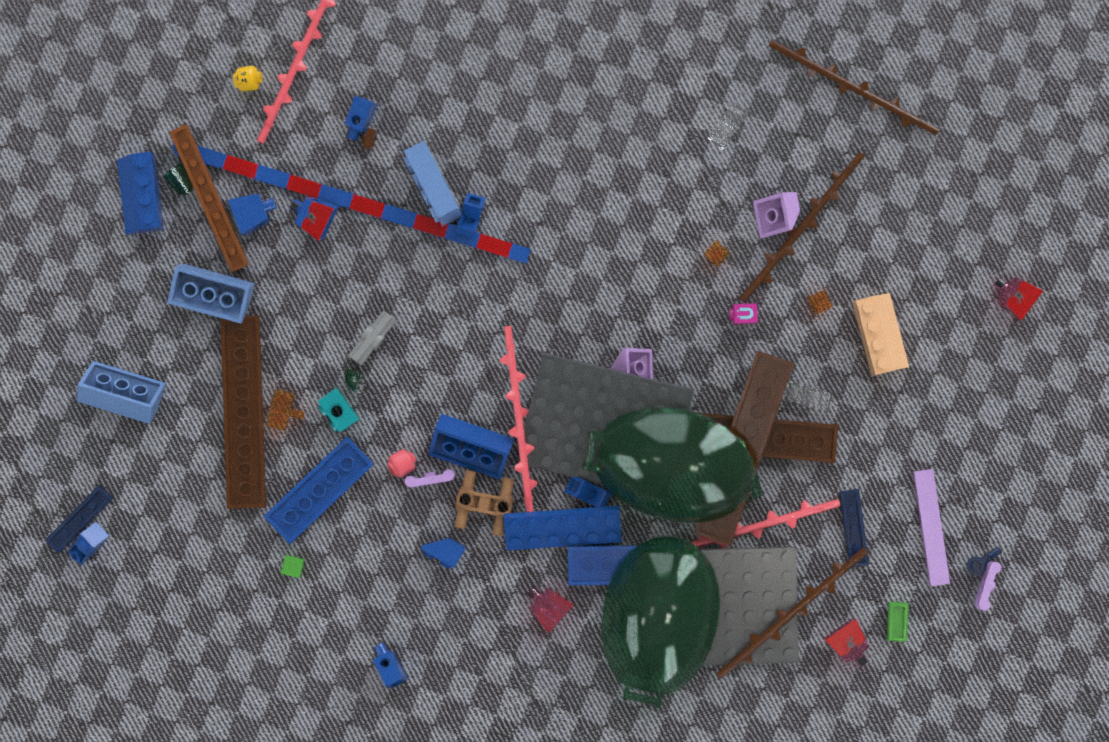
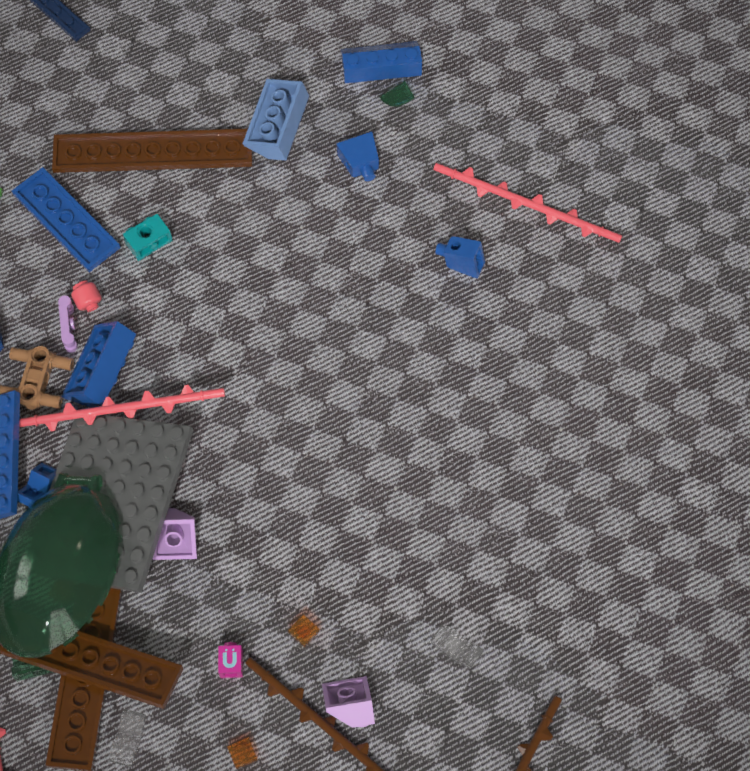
camera: 90 degrees right, 20 degrees down
(88, 543) = (31, 16): blue slope -> none
(120, 392) = (180, 43): medium blue slope -> none
(209, 198) = (374, 117): dark orange plate -> none
(247, 78) = (501, 152): yellow head -> none
(281, 410) = (150, 185): clear orange plate -> none
(314, 216) = (354, 213): torso -> none
(353, 379) = (180, 250): clear green brick -> none
(360, 204) = (368, 260): piece -> none
(369, 139) = (437, 267): reddish brown plate -> none
(372, 337) = (223, 269): light grey piece -> none
(435, 189) = (386, 322): medium blue brick -> none
(471, 215) = (357, 368): blue slope -> none

